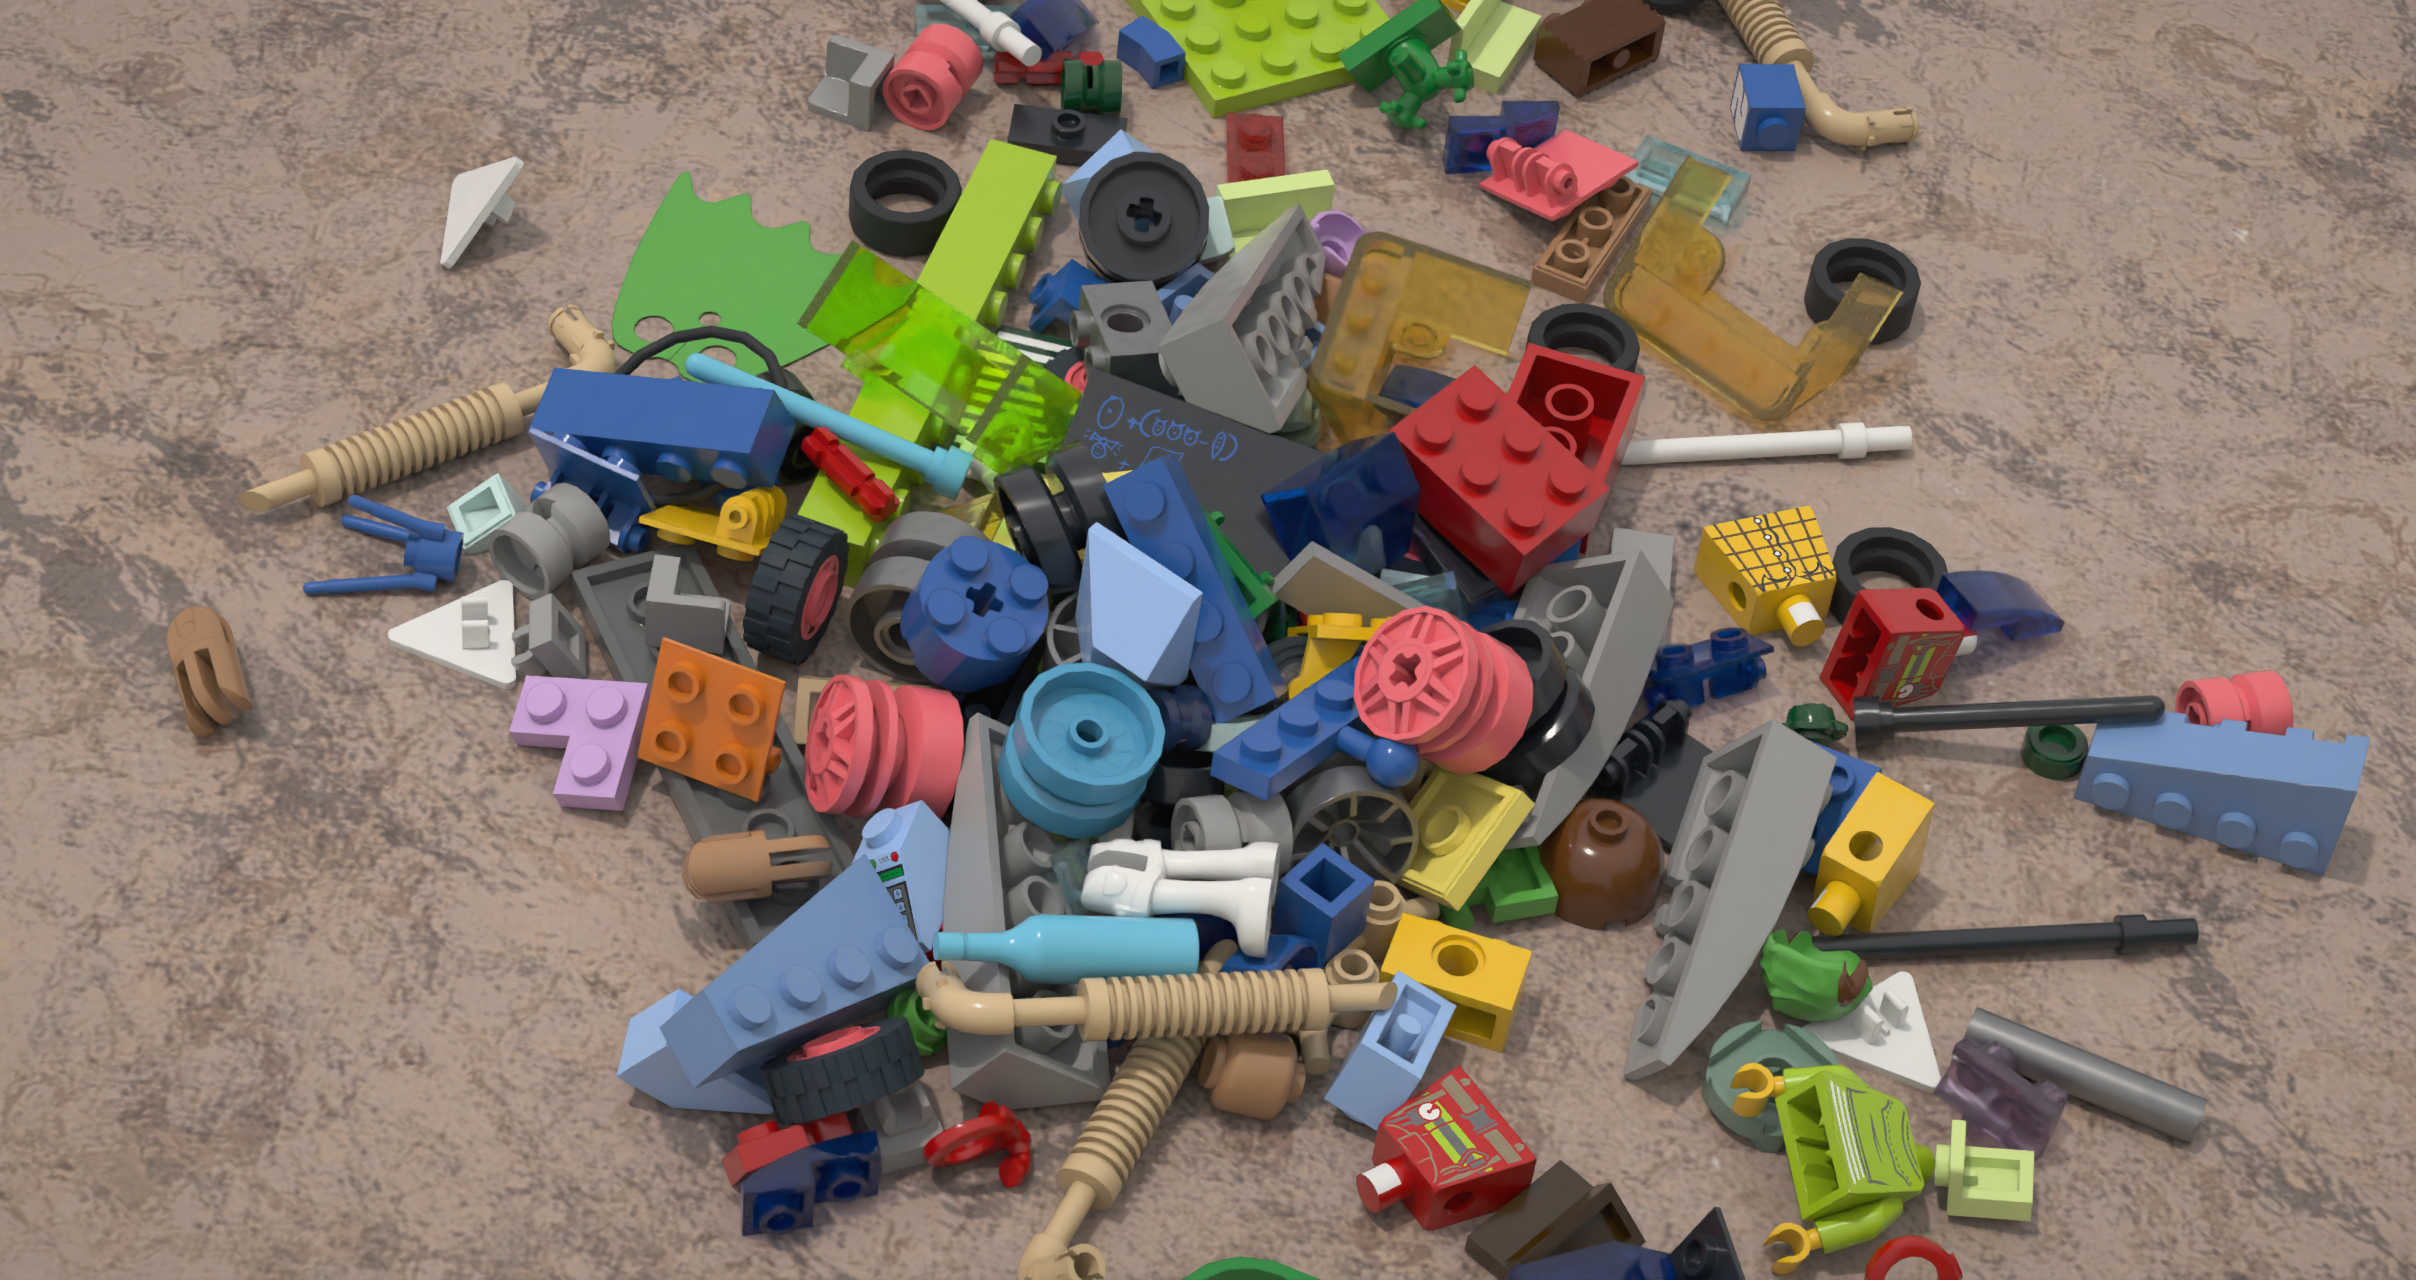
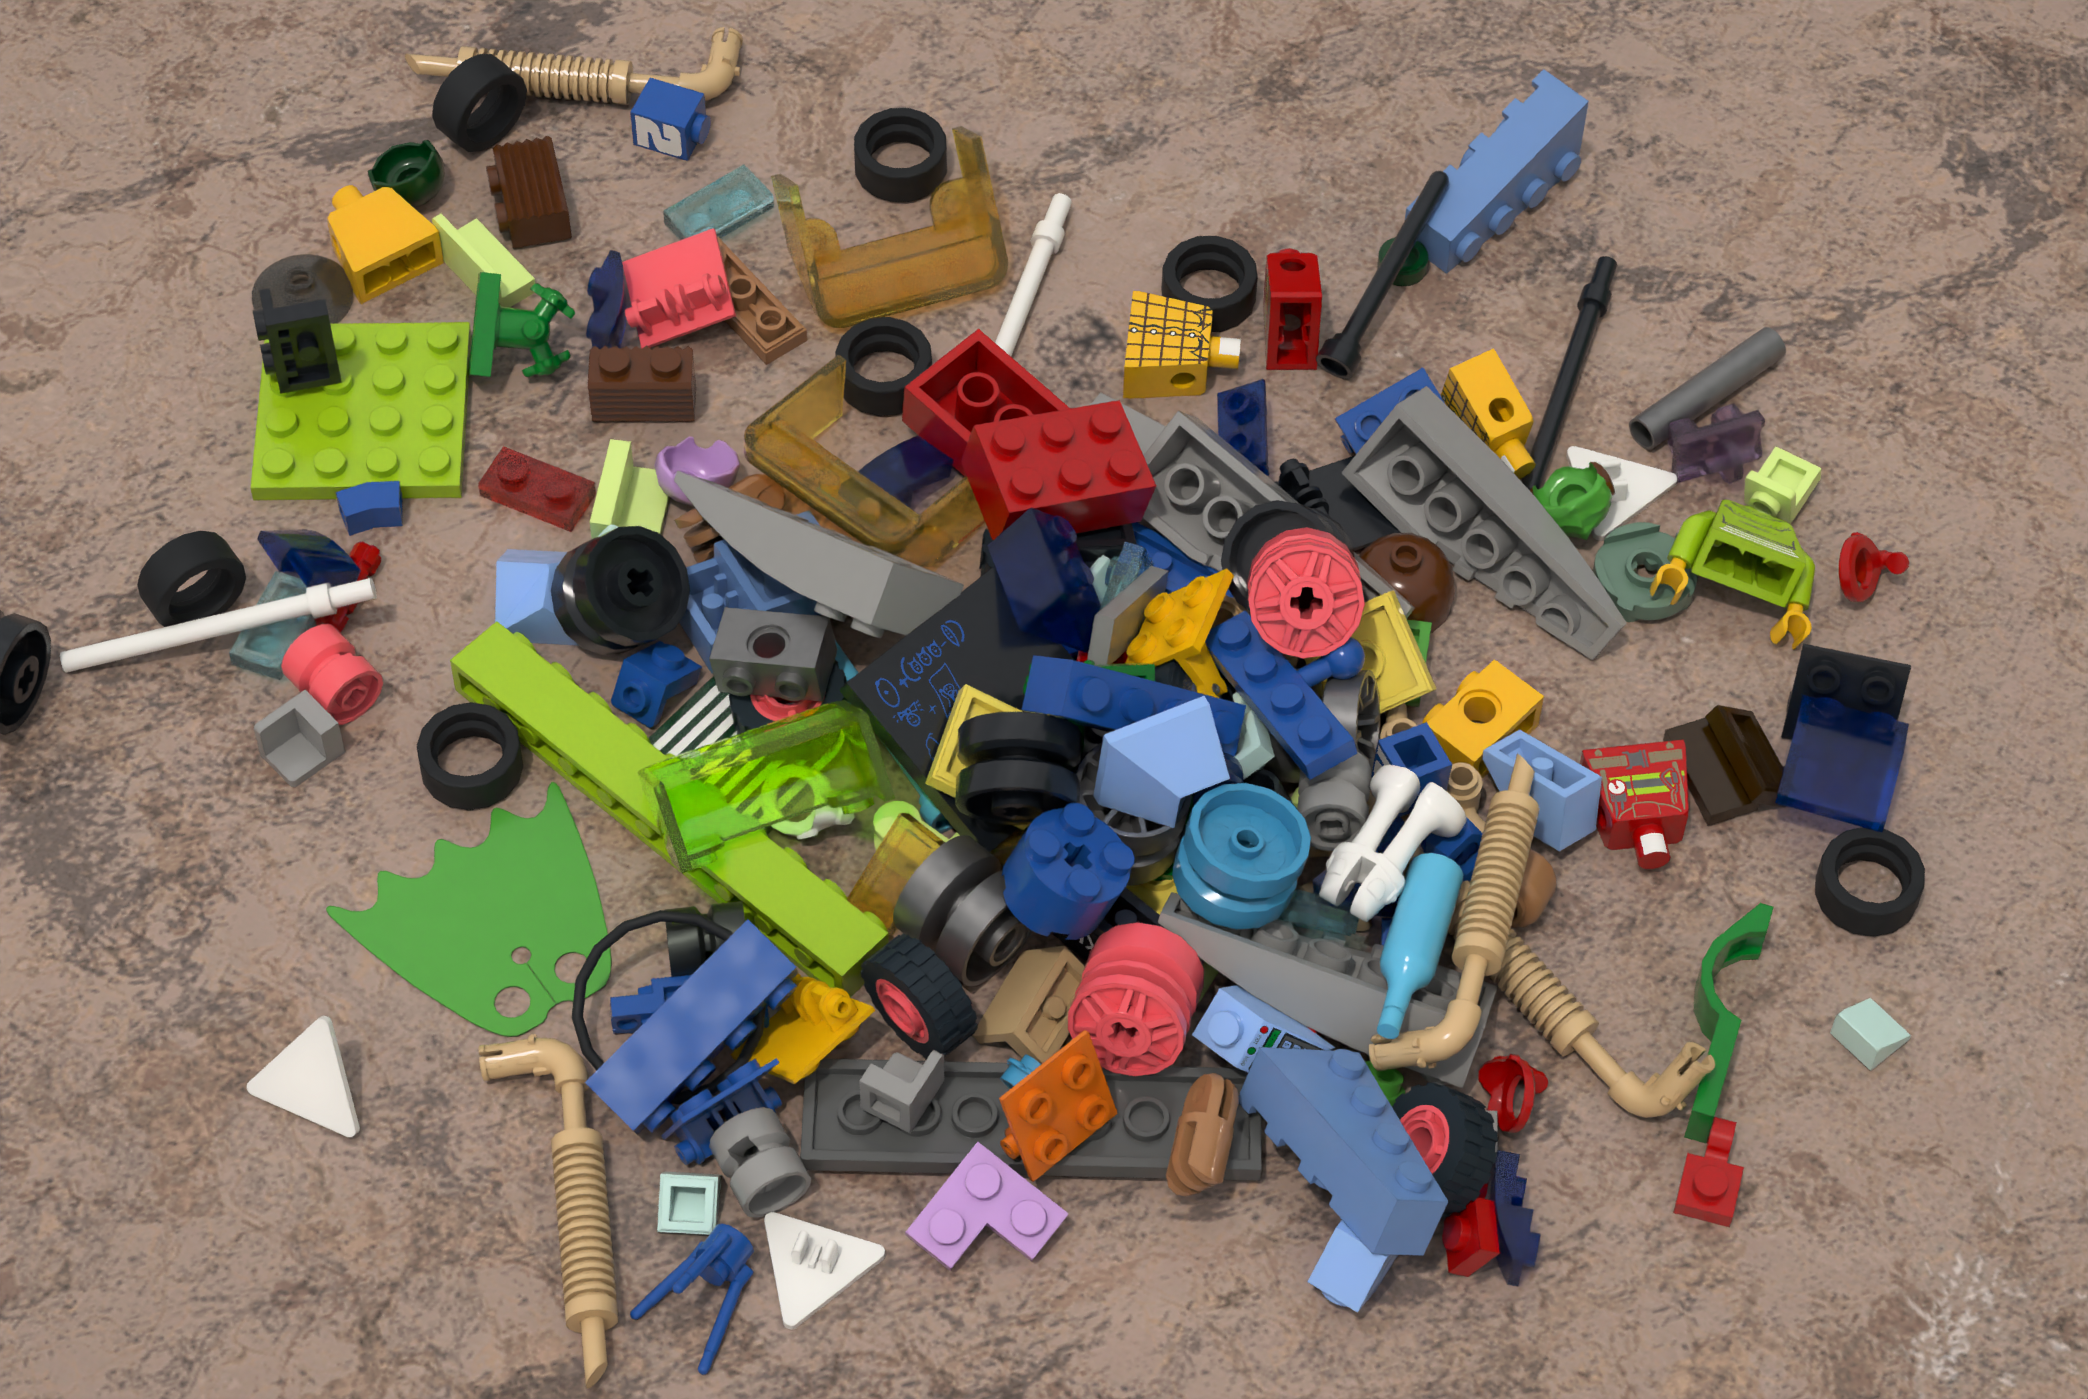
camera: 60 degrees left, 10 degrees up
(550, 641) = (871, 1199): light grey tile -> none
(850, 474) = (817, 909): red axle -> none
(941, 468) = (831, 842): medium azure piece -> none
(1062, 133) = (439, 609): black plate -> none
(1103, 84) = (403, 561): dark green wheel -> none
(1421, 183) = (642, 384): none -> reddish brown brick
(1816, 723) = (1333, 395): dark green plant -> none
(2000, 600) = (1272, 225): clear blue slope -> none
(2249, 697) = (1434, 136): coral wheel -> none

